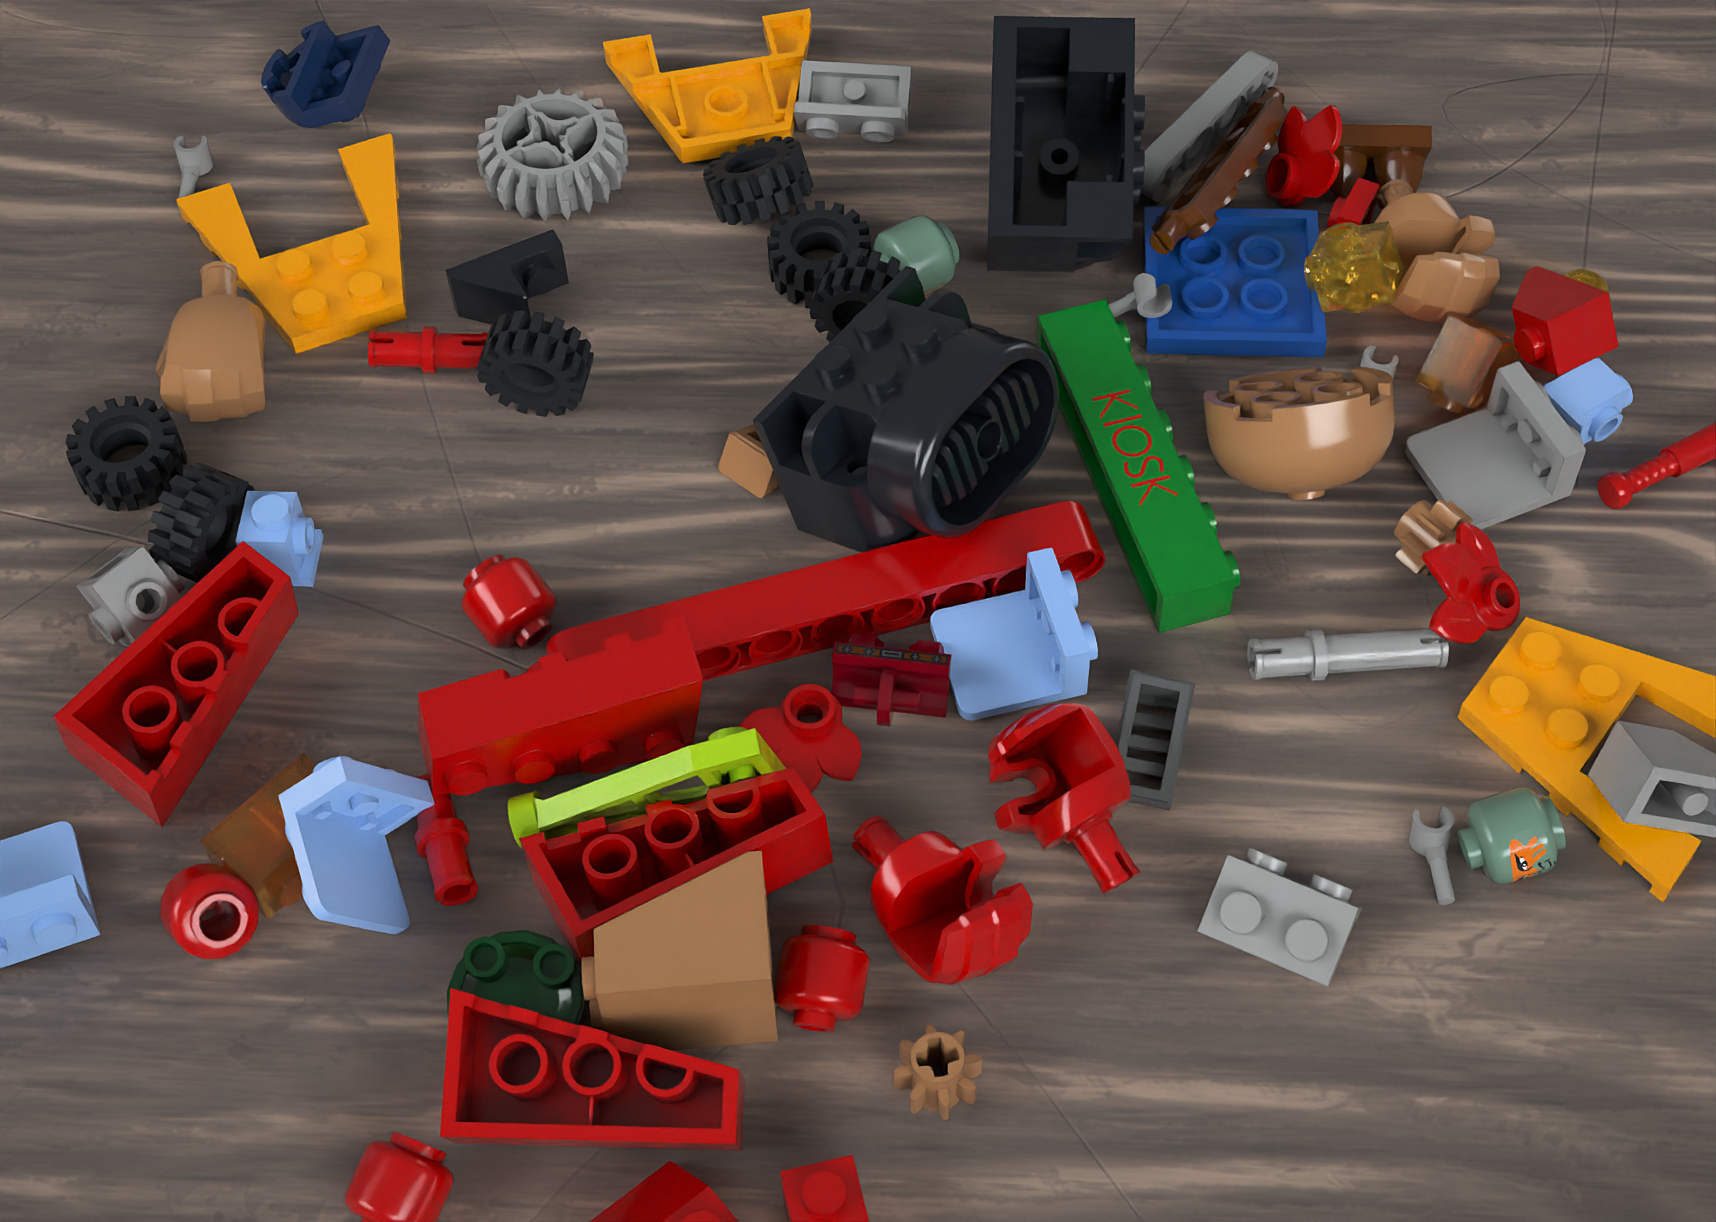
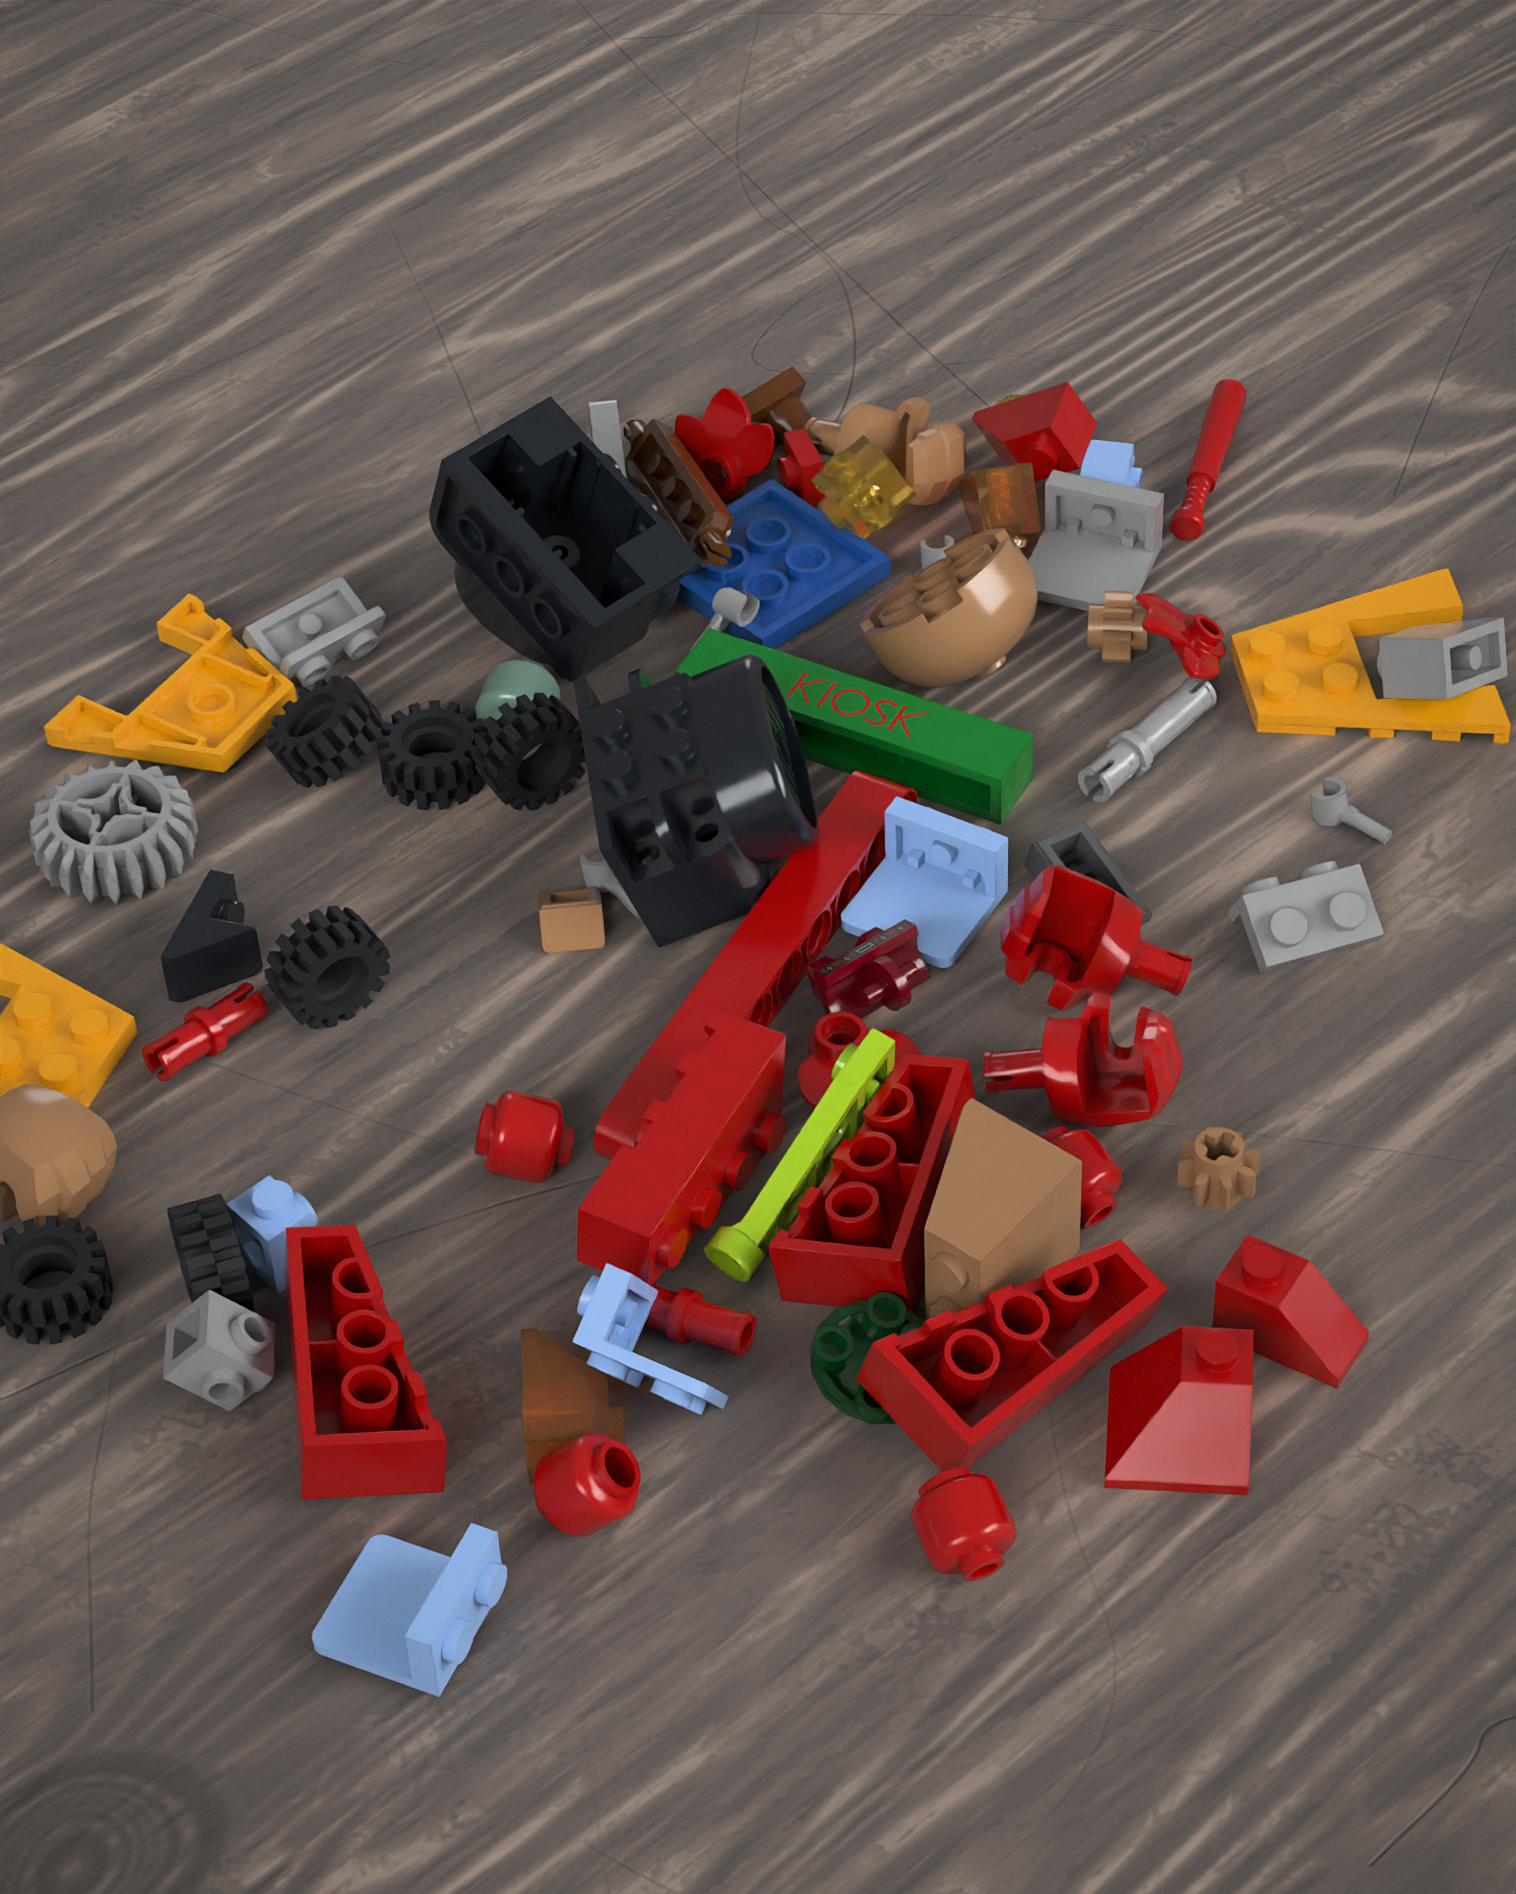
camera: 45 degrees left, 10 degrees down
(1512, 835) = (1387, 761): sand green head -> none

